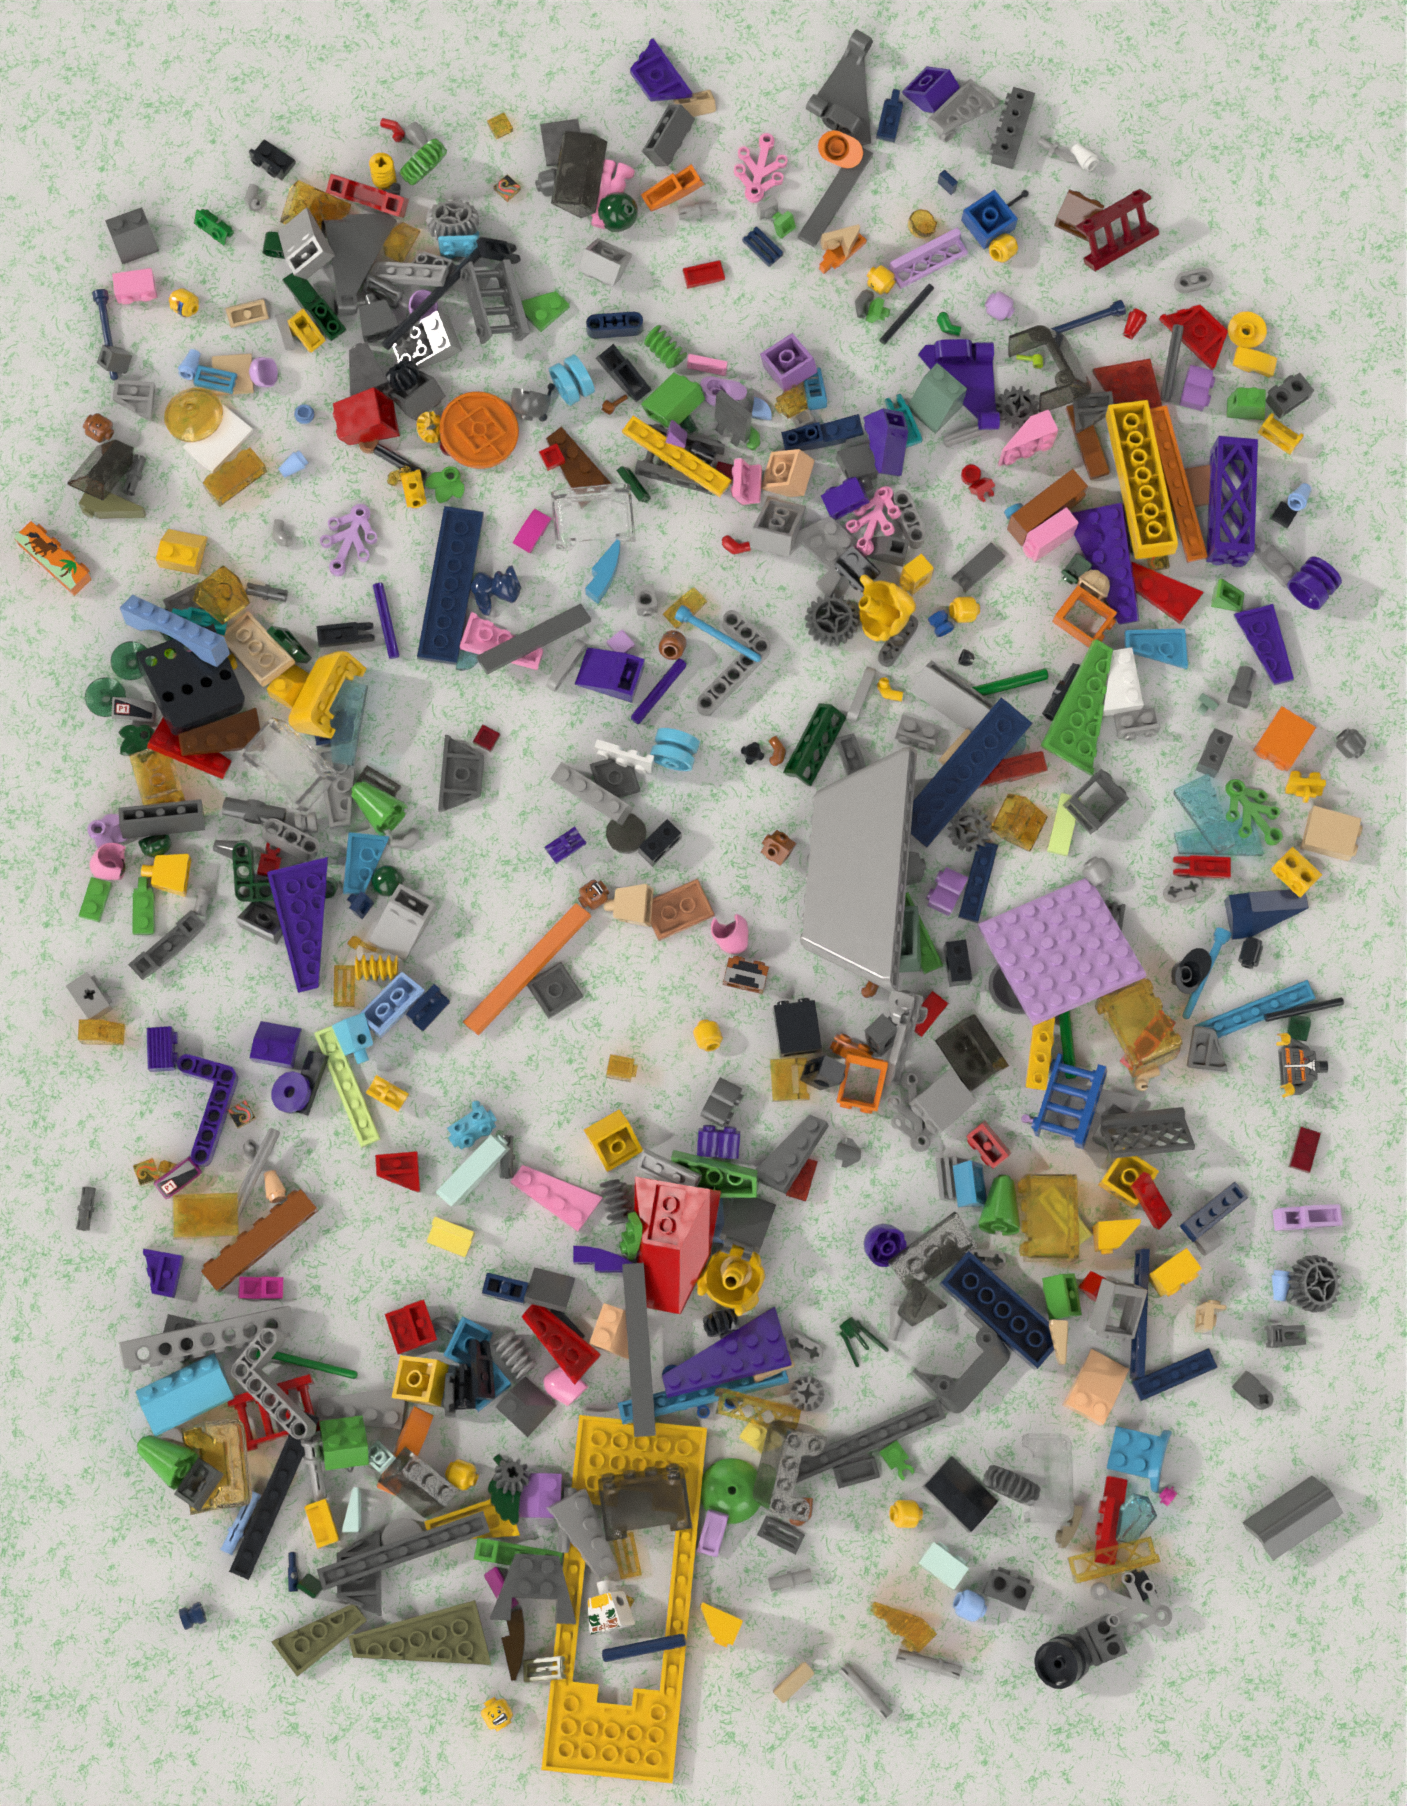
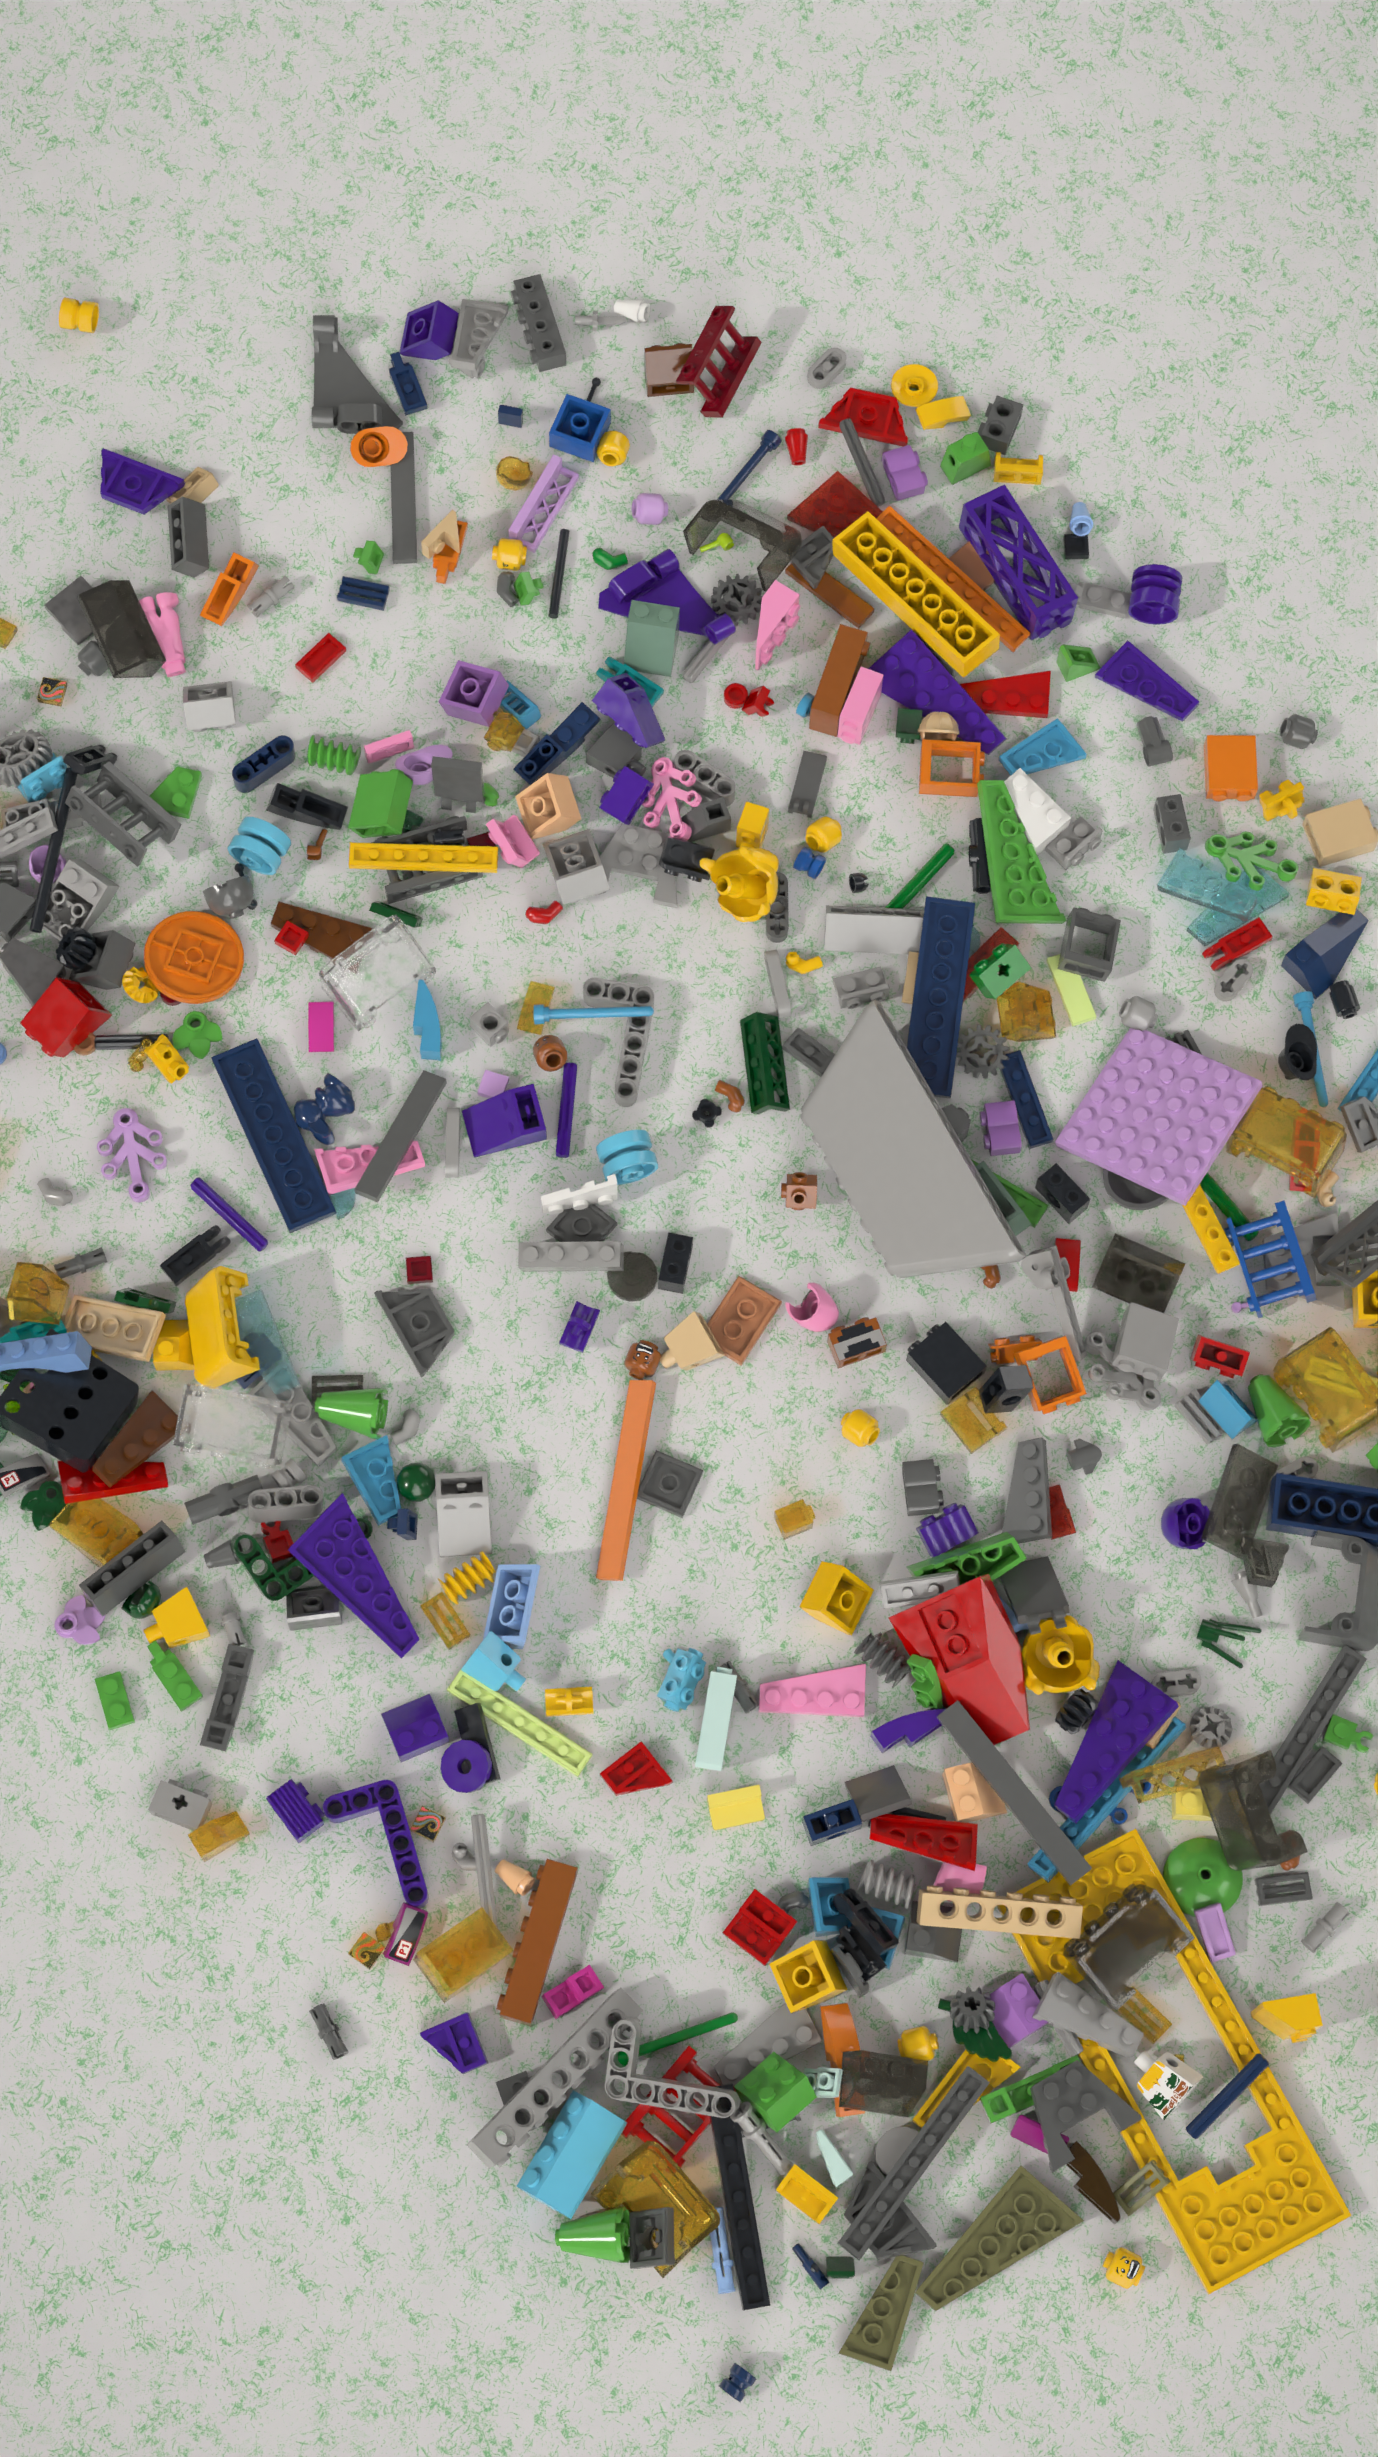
camera: 30 degrees left, 5 degrees down
(108, 862) = (104, 1650): bright pink piece -> none
(293, 464) = (18, 1112): light blue cone -> none
(355, 941) = (425, 1566): clear yellow hand -> none
(428, 1008) = (551, 1586): dark blue bracket -> none
(576, 1435) = (1067, 1924): none -> tan brick
(618, 211) = (189, 645): dark green cylinder -> none
(676, 435) = (409, 835): medium lavender slope -> none
(759, 170) = (307, 518): bright pink plant -> none
(761, 409) = (476, 755): light blue tile -> none
(767, 208) = (343, 551): light grey plate -> none
(816, 624) = (707, 941): dark grey gear -> none
(881, 1034) = (1038, 1312): dark grey brick -> none
(1028, 784) = (1011, 968): none -> brick
(1158, 563) = (985, 670): clear yellow tile -> none
(1206, 704) = (1130, 779): sand green tile -> none

